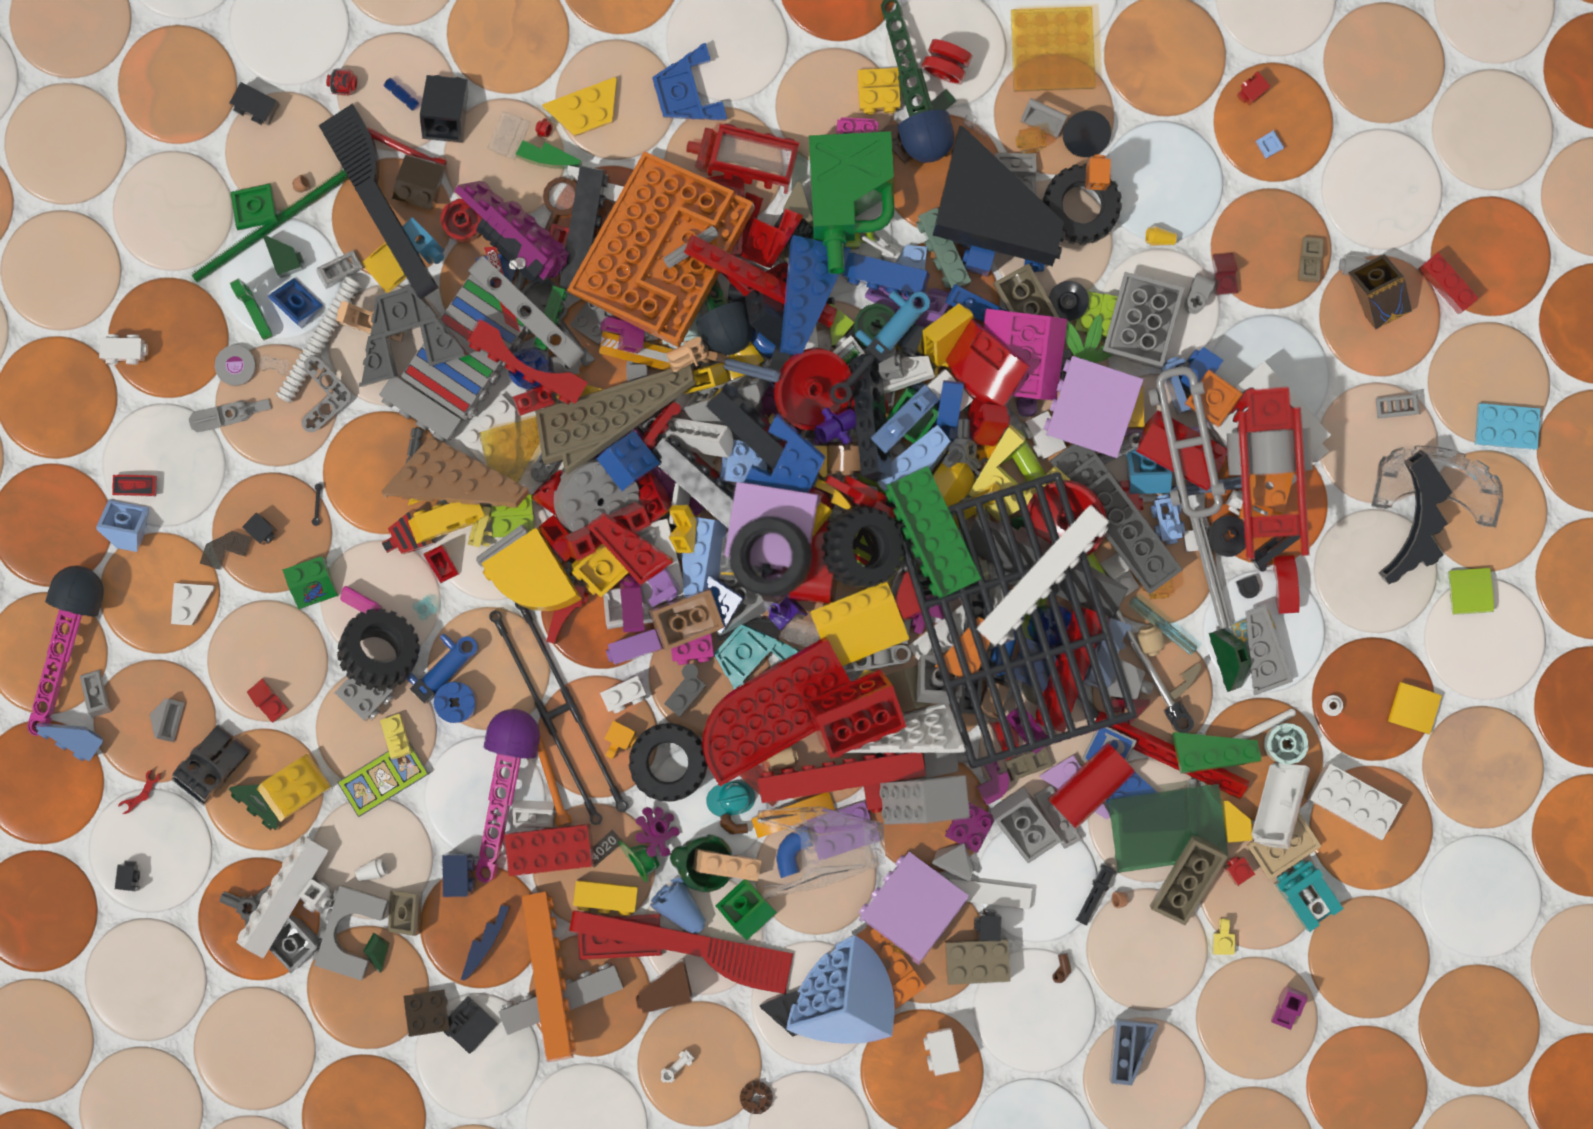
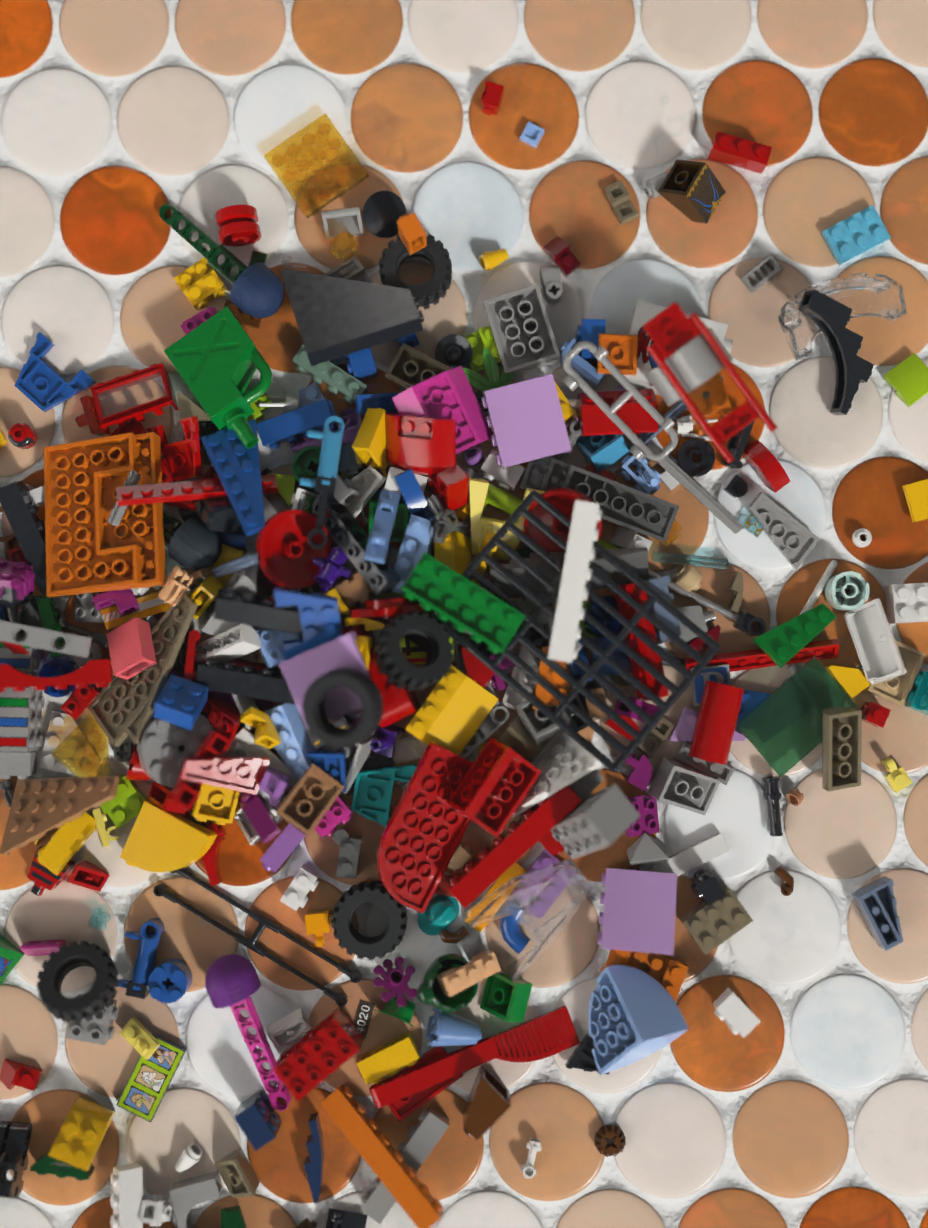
camera: 30 degrees left, 0 degrees up
(501, 544) = (127, 829): light grey axle -> none
(562, 816) = (313, 1016): orange piece -> none
(611, 384) = (131, 648): none -> coral brick
(634, 134) = (22, 436): none -> red head
(1231, 658) = (759, 550): dark green slope -> none

